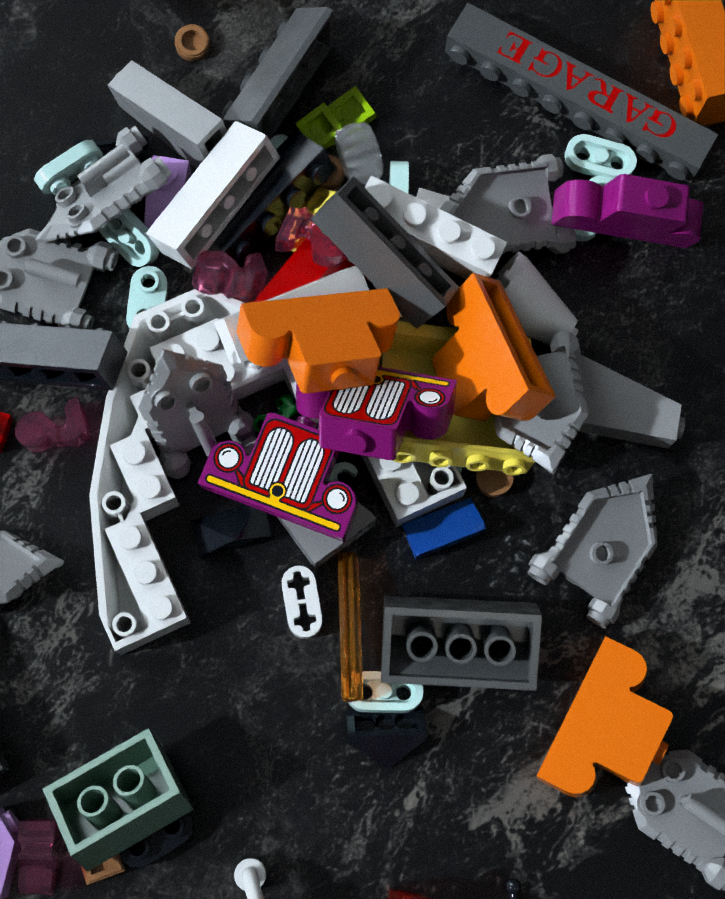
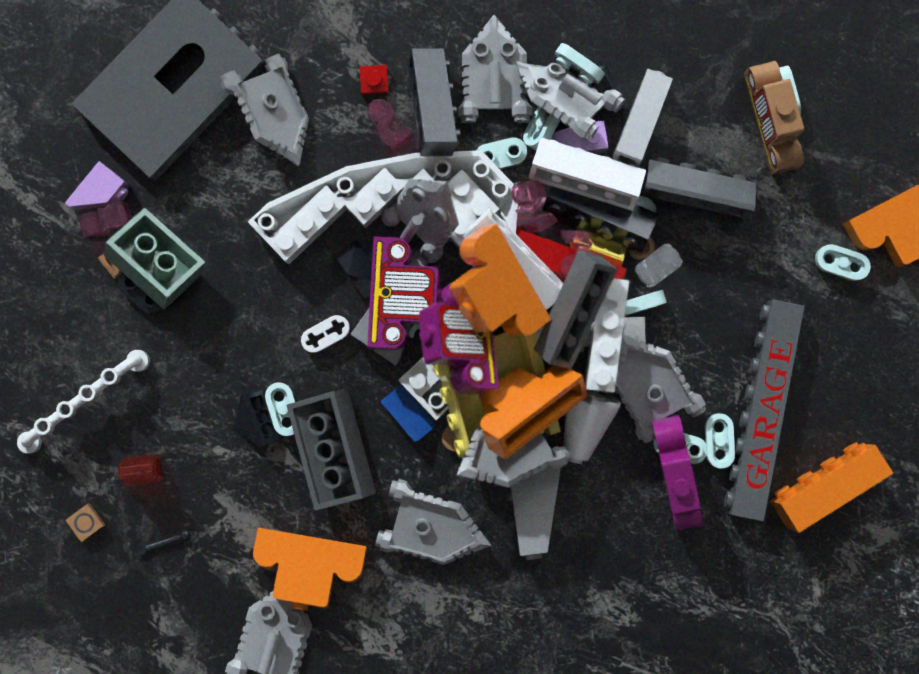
camera: 80 degrees right, 10 degrees up
(192, 42) = (708, 115): medium nougat tile -> none
(285, 407) = (446, 274): green arm -> none
(324, 120) = (682, 238): lime slope -> none
(350, 627) = (318, 372): clear orange axle -> none

